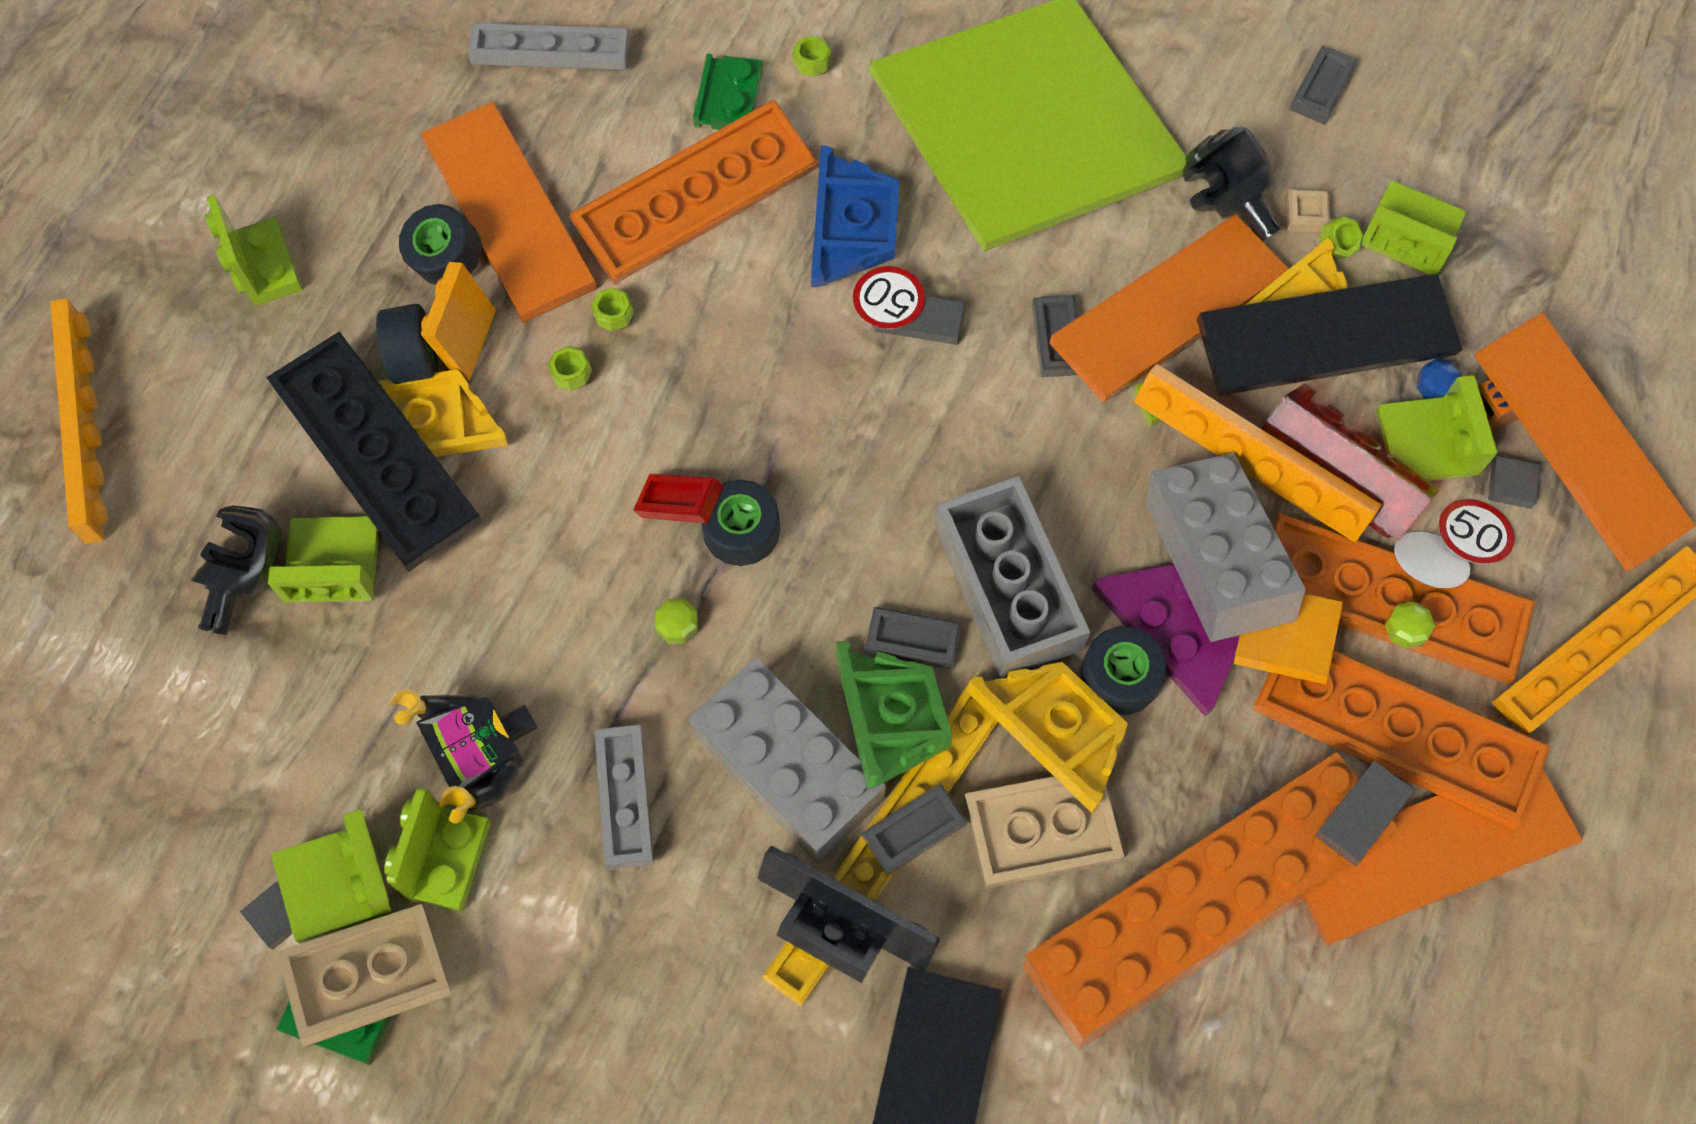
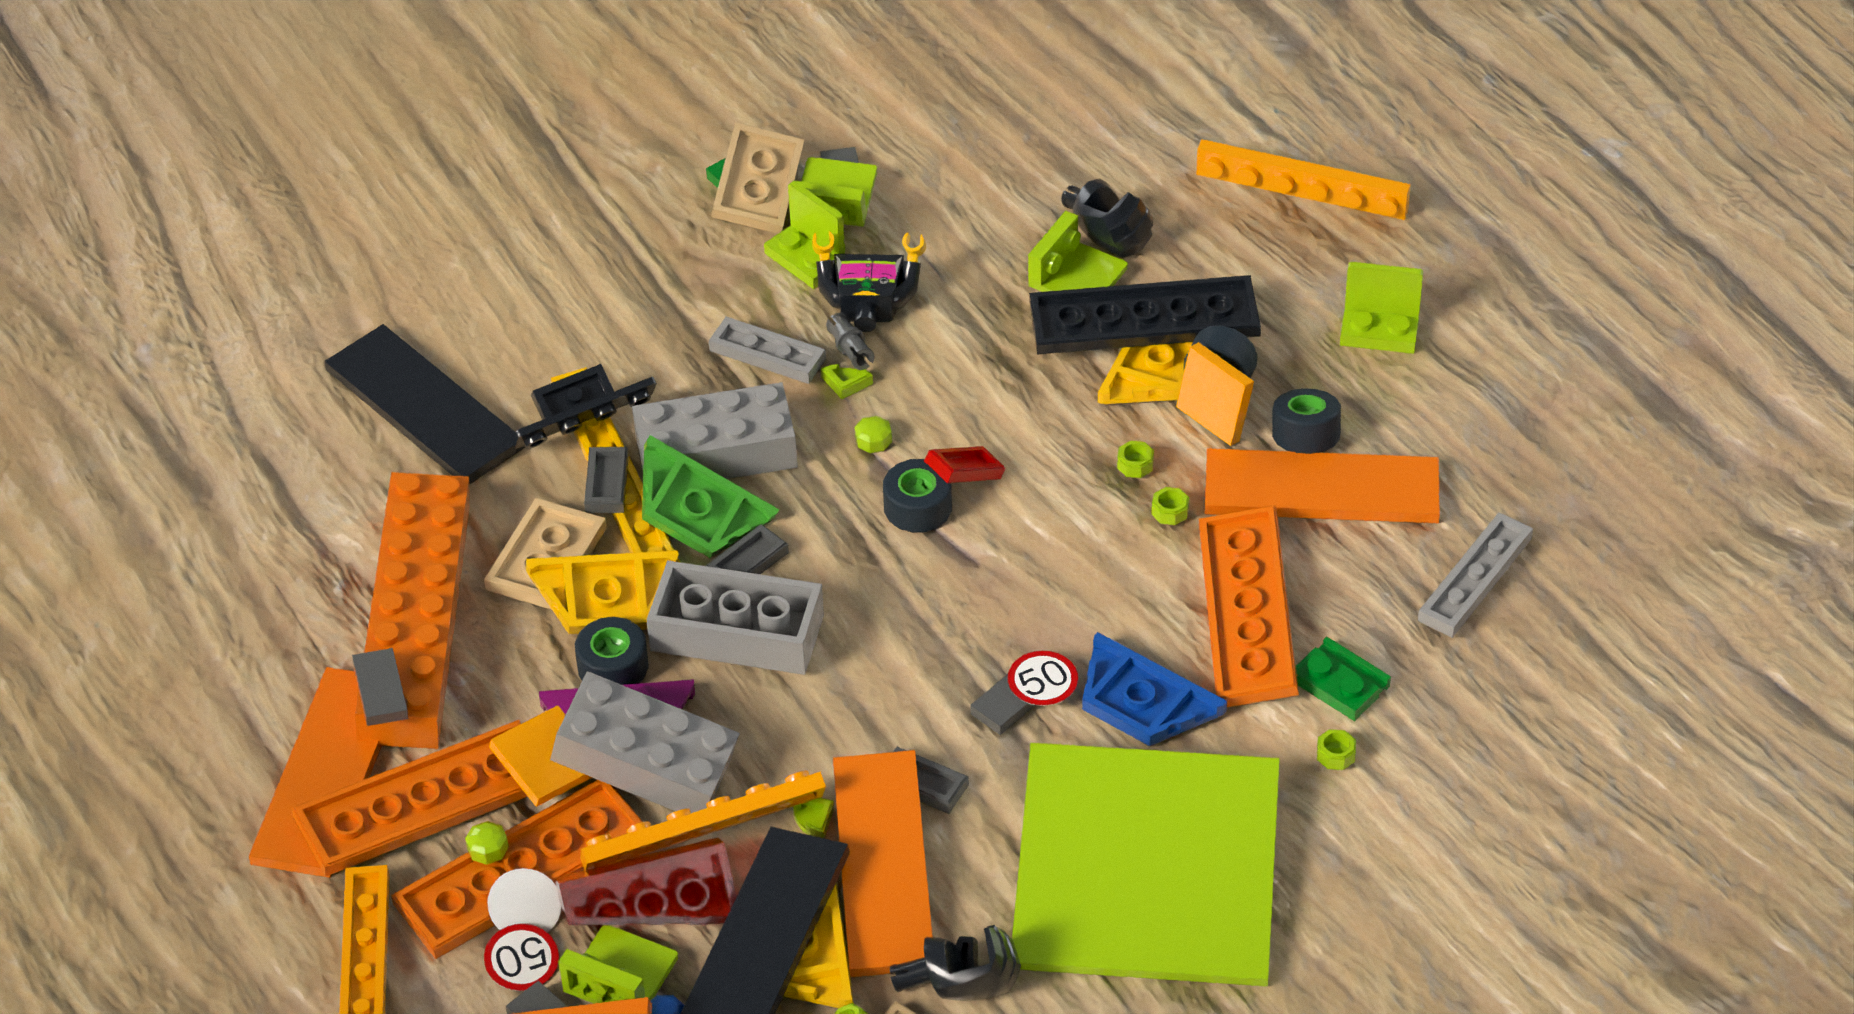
camera: 125 degrees right, 20 degrees down
(565, 715) = (850, 341): none -> dark grey pin
(613, 697) = (846, 380): none -> lime tile

